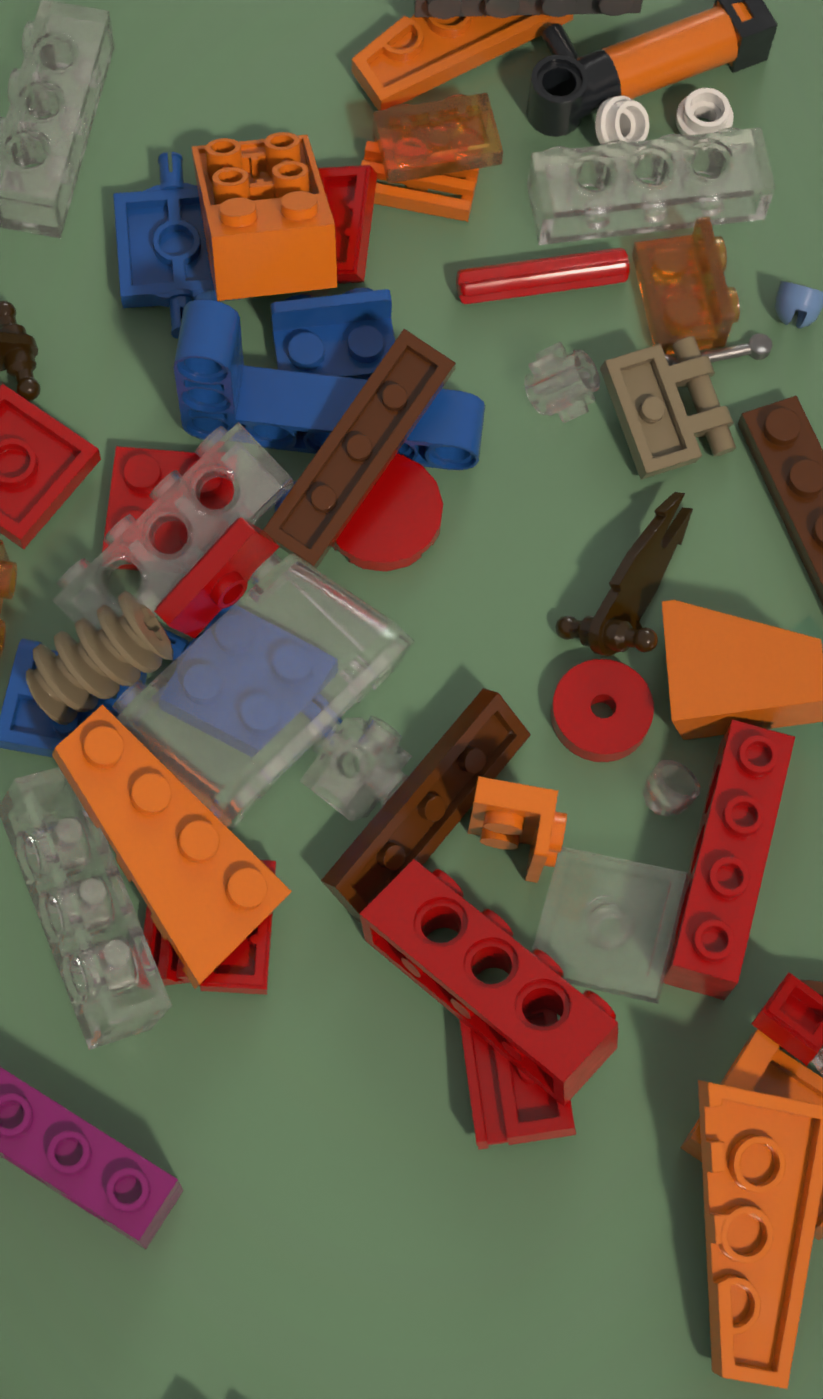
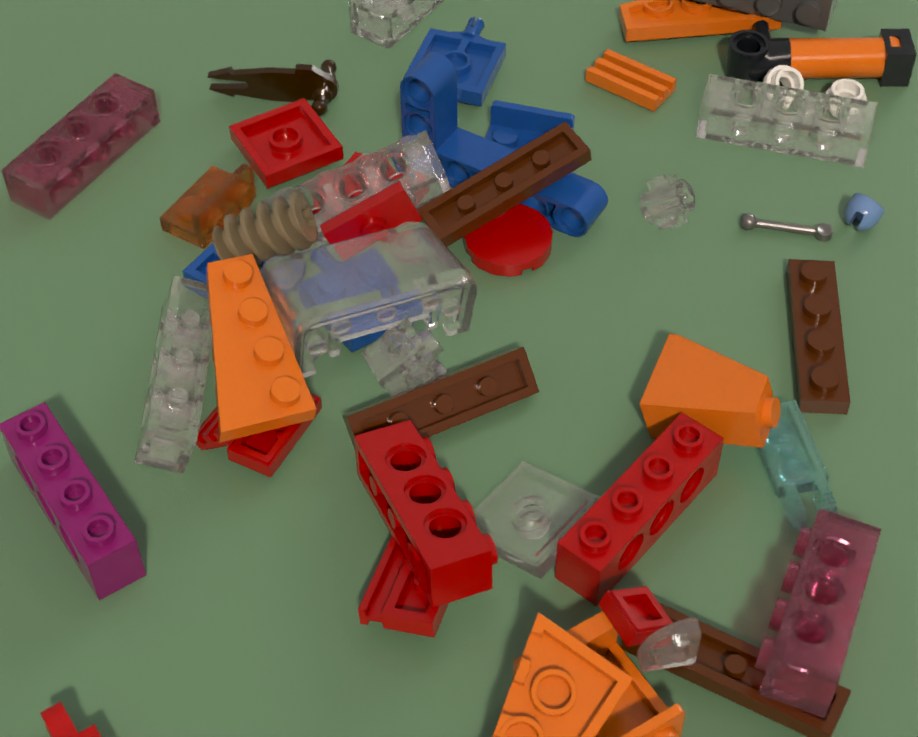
camera: 30 degrees right, 20 degrees down
(265, 216) = (512, 57): orange slope -> none
(351, 202) = (566, 81): red plate -> none
(437, 137) = (651, 53): clear orange bracket -> none
(516, 814) = (494, 421): orange bracket -> none
(542, 275) = (688, 149): red axle -> none
(605, 683) = (594, 413): red piece -> none
(632, 587) = (645, 336): dark brown piece -> none
(653, 412) = (723, 238): dark tan plate -> none
(670, 788) = (619, 452): clear hinge -> none
(686, 288) = (782, 184): clear orange bracket -> none

